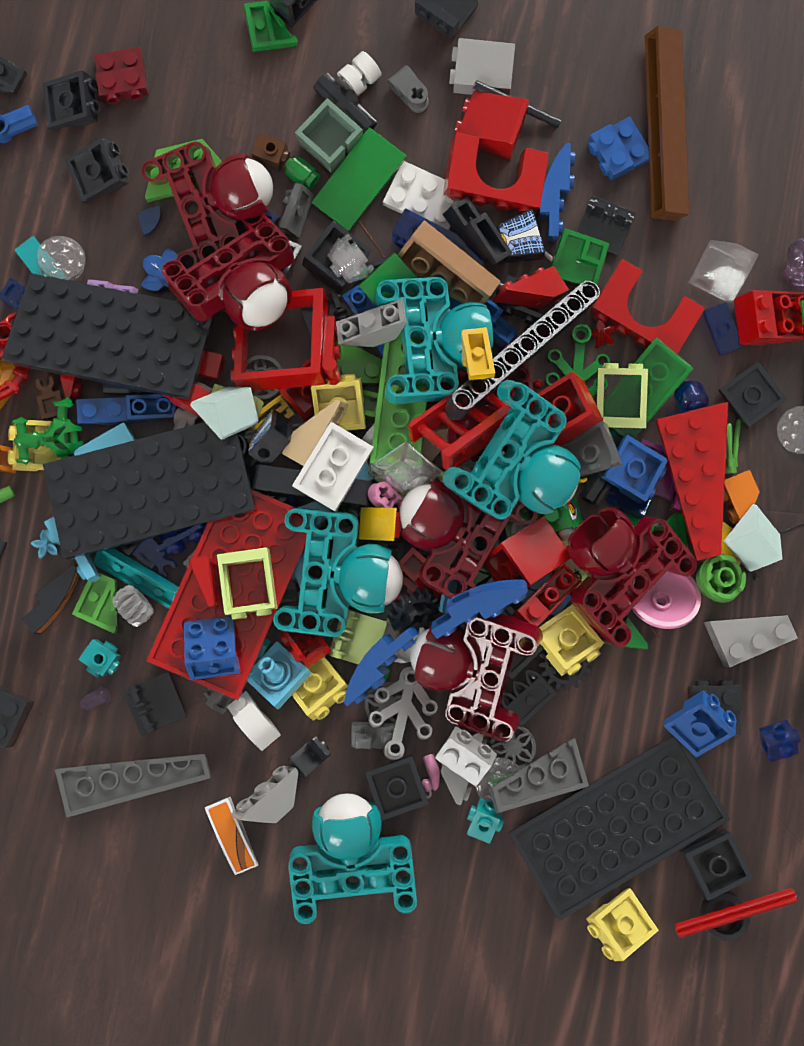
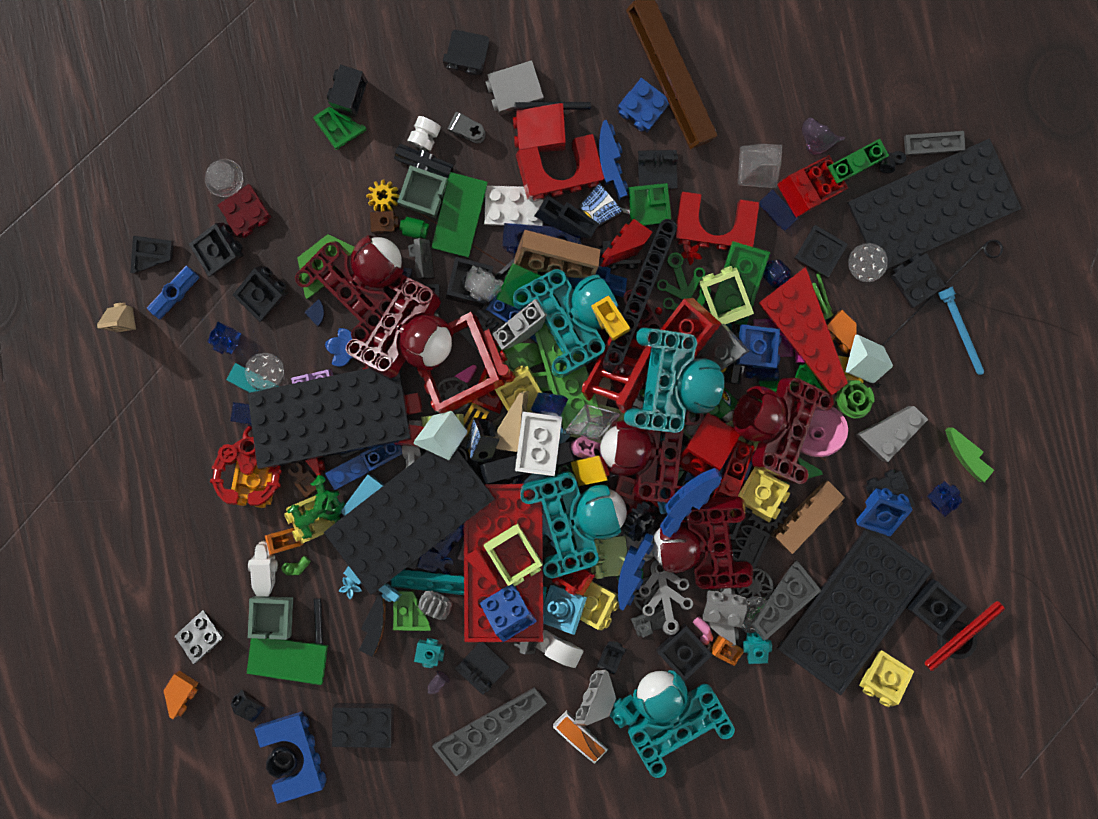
camera: 25 degrees left, 5 degrees up
(33, 202) = (224, 338): none -> clear blue brick
(114, 28) = (223, 177): none -> clear cone
(286, 115) = (383, 189): none -> yellow gear
(288, 359) = (467, 374): none -> dark pink slope
(296, 827) = (624, 712): none -> teal brick
(365, 427) = (549, 404): none -> clear blue plate
(447, 809) = (724, 650): none -> orange slope
(608, 692) = (808, 516): none -> medium nougat wedge

